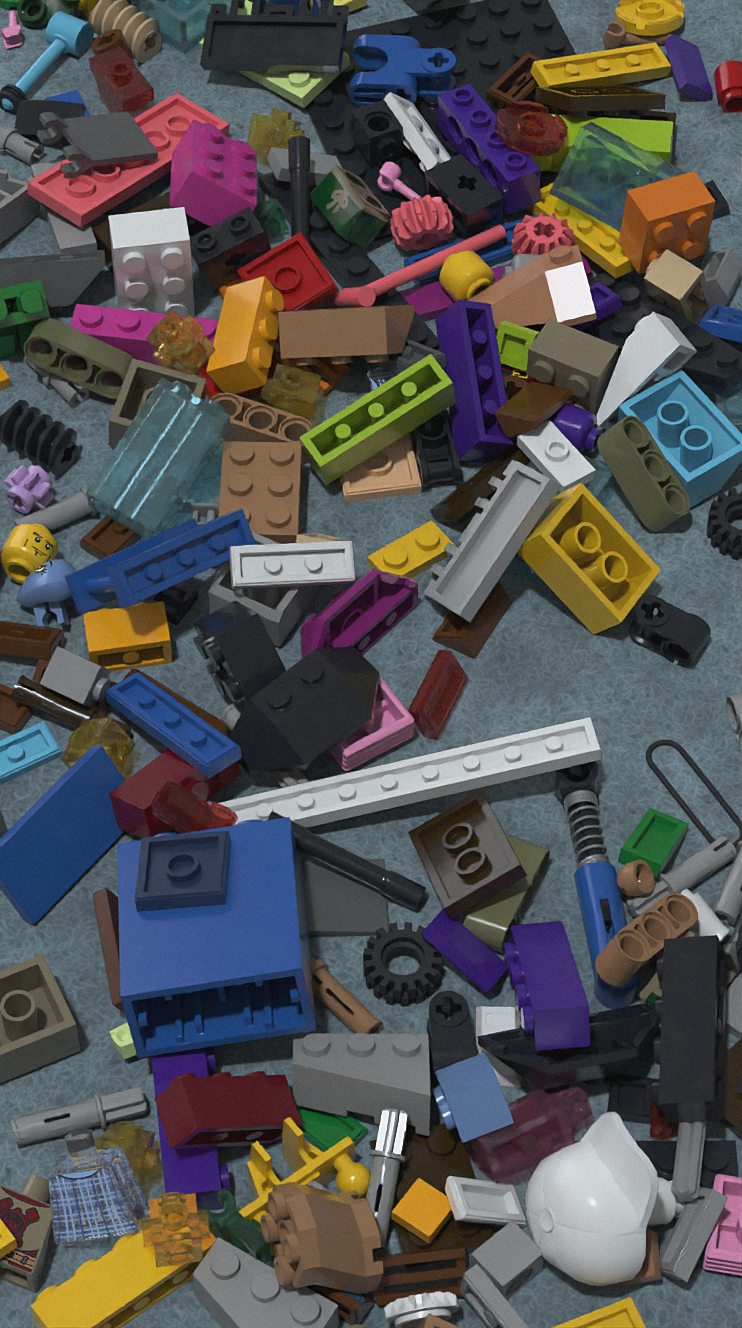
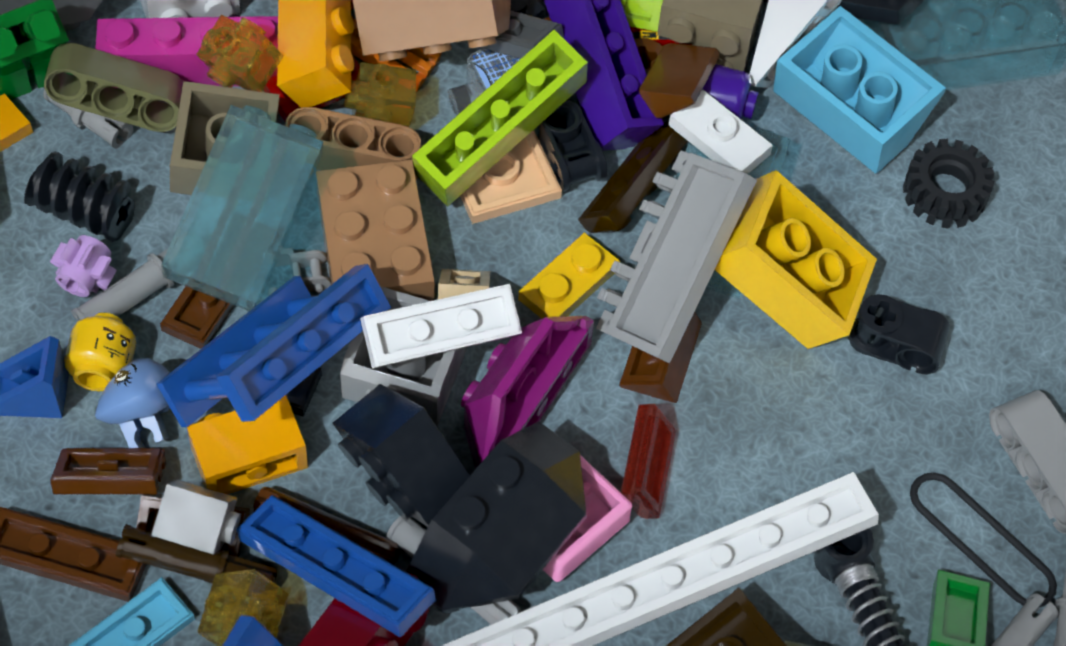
camera: 15 degrees left, 5 degrees up
(643, 474) = (826, 140): olive beam -> none

